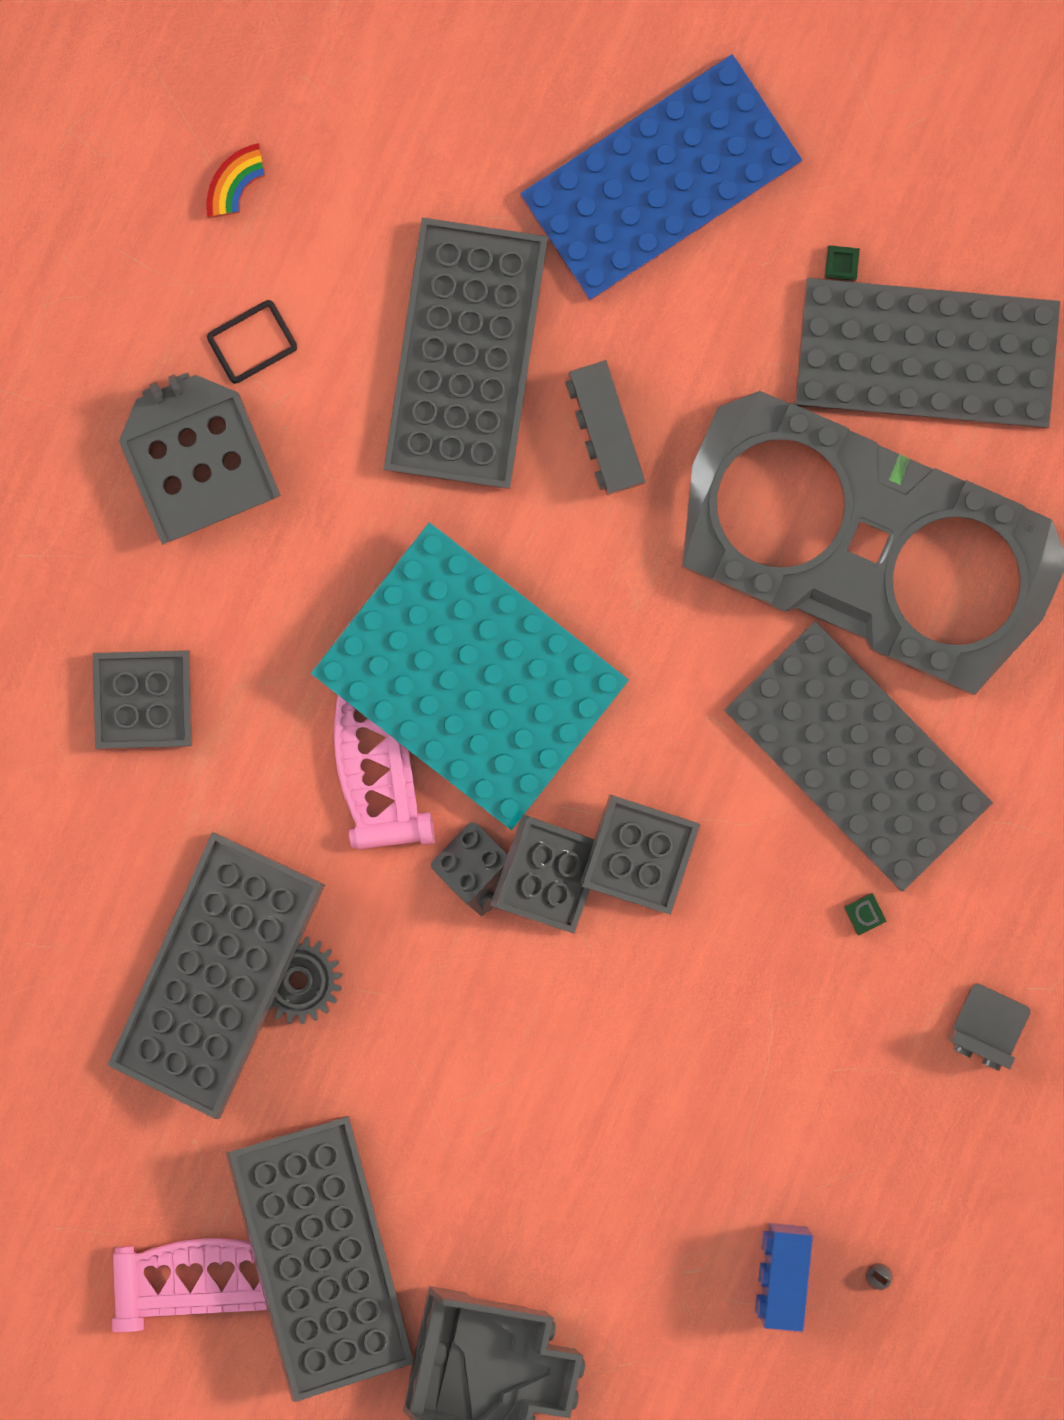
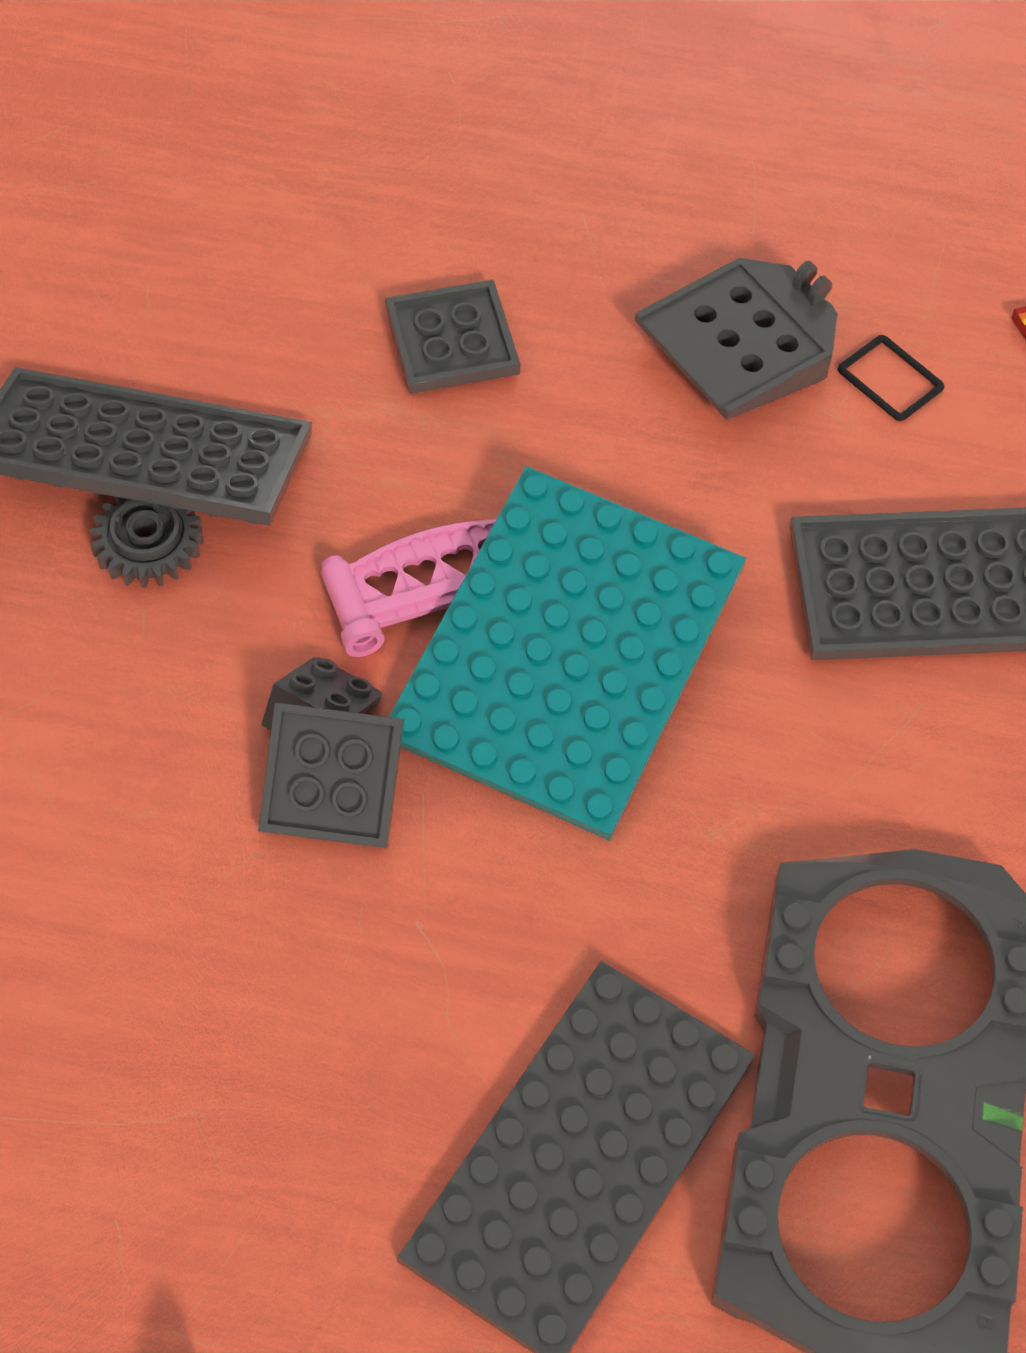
camera: 75 degrees right, 30 degrees down
(606, 427) = (925, 742): dark grey brick -> none
(639, 854) = (379, 887): dark grey plate -> none
(865, 914) = (354, 1212): dark green tile -> none

